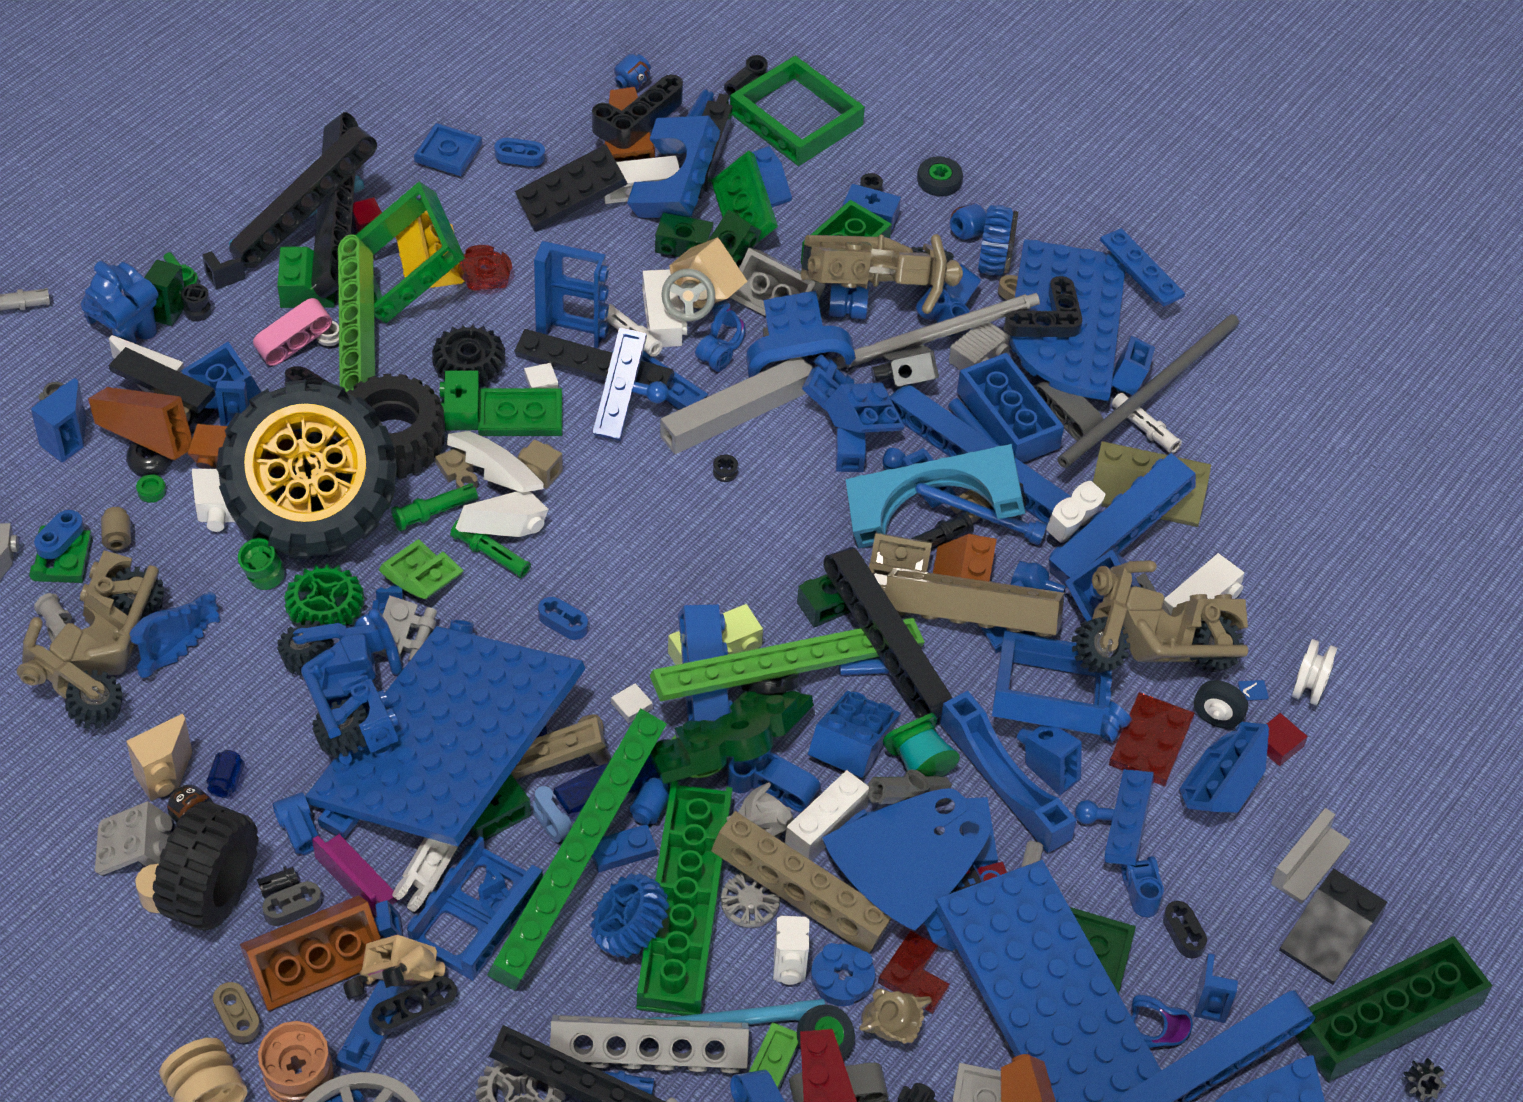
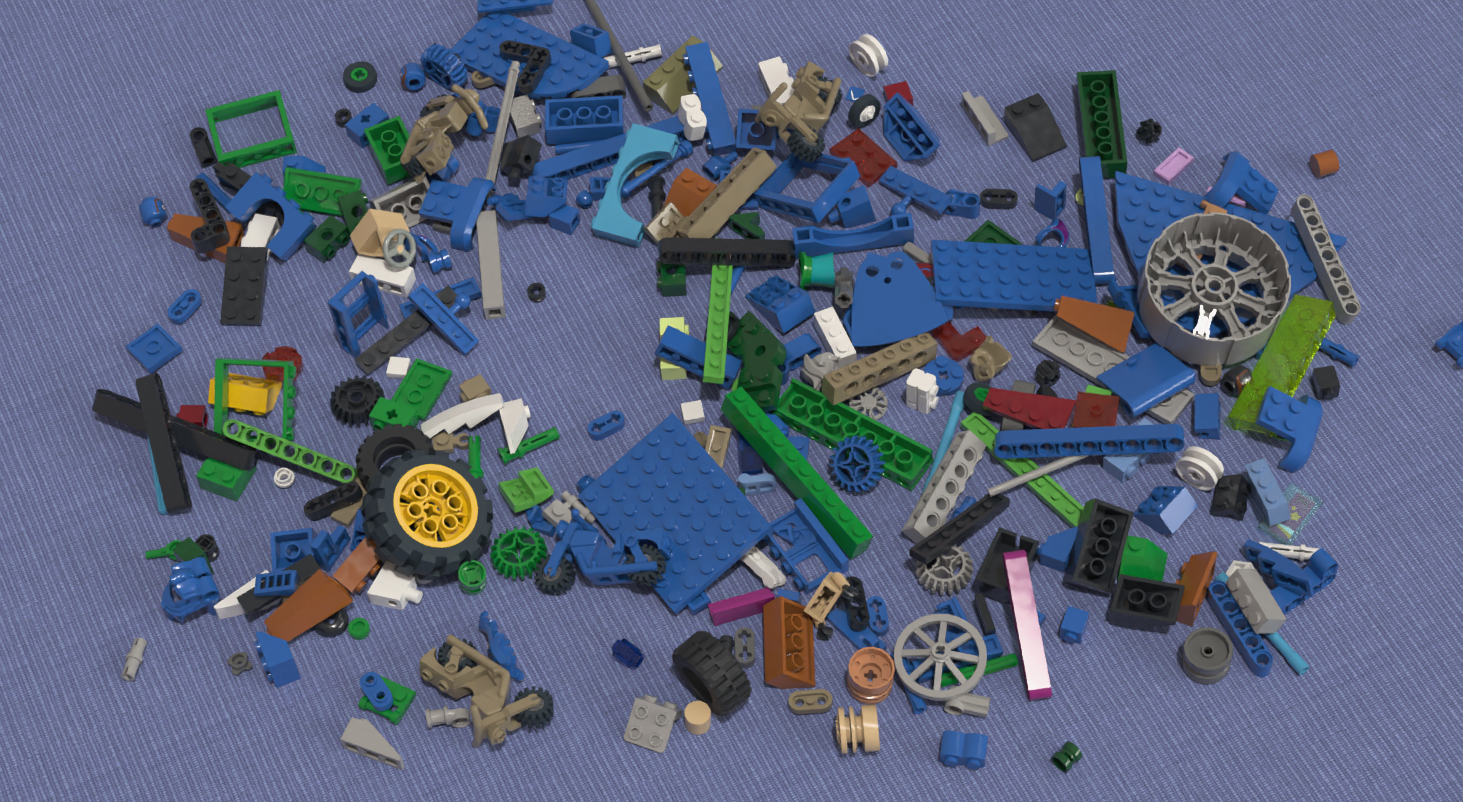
camera: 55 degrees left, 5 degrees up
(115, 528) = (387, 658): dark tan brick -> none
(161, 757) = (604, 682): tan slope -> none
(162, 385) = (283, 590): none -> blue slope
(185, 798) = (645, 680): head -> none
(223, 273) = (184, 524): black panel -> none
(292, 332) = (275, 496): bright pink beam -> none
(295, 816) = (681, 624): blue piece -> none
(409, 1043) = (881, 615): none -> blue beam
(652, 345) = (394, 298): white pin -> none
(956, 647) = (747, 225): none -> dark green slope

